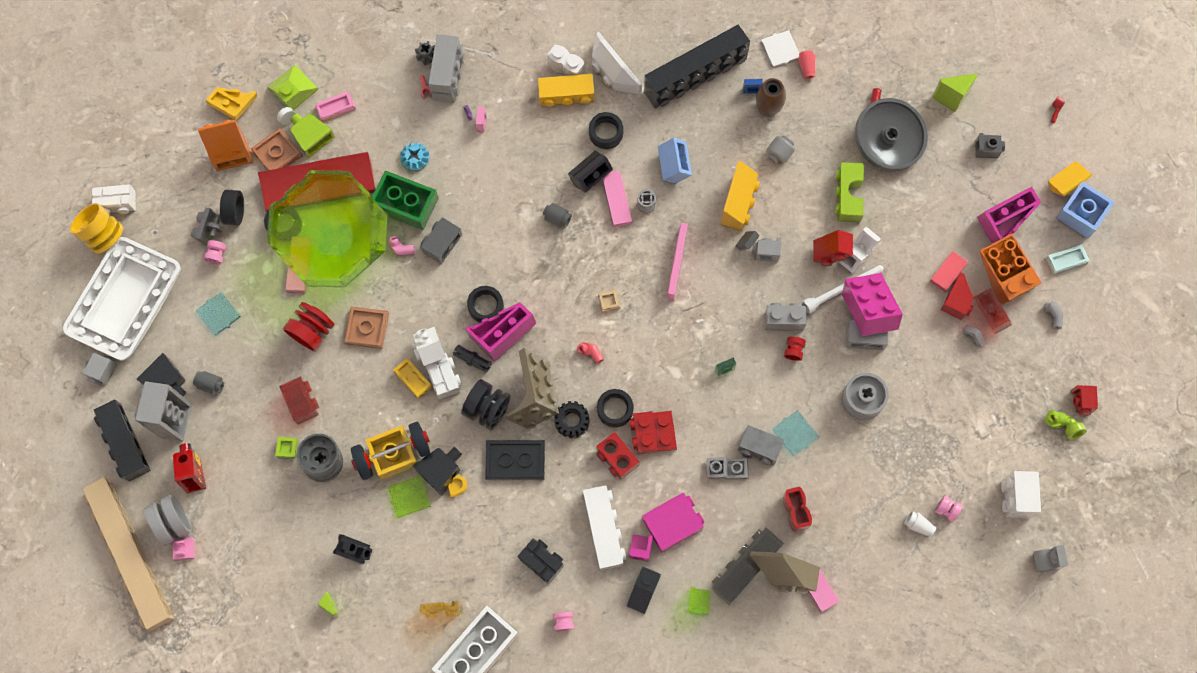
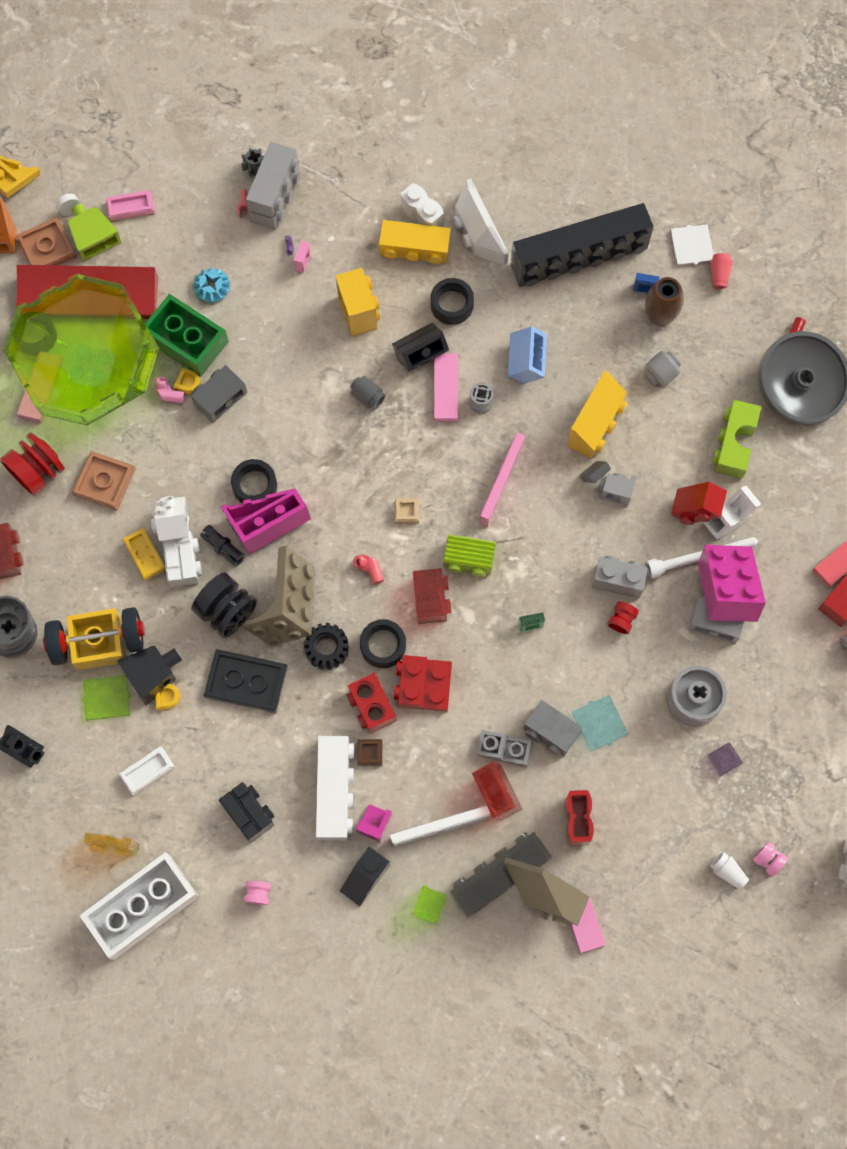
camera: 10 degrees right, 0 degrees up
(292, 88) = (85, 172): lime slope -> none
(413, 236) = (187, 381): none -> yellow tile
(455, 546) = (146, 770): none -> white tile
(533, 146) = (357, 301): none -> yellow brick
(624, 494) = (369, 752): none -> reddish brown tile
(643, 363) = (430, 596): none -> clear red brick
(666, 325) = (469, 555): none -> lime brick
(673, 522) = (421, 798): dark pink brick -> none
(692, 539) = (440, 826): none -> white tile
(730, 502) = (497, 791): none -> clear red brick
(897, 440) = (725, 759): none -> clear purple tile

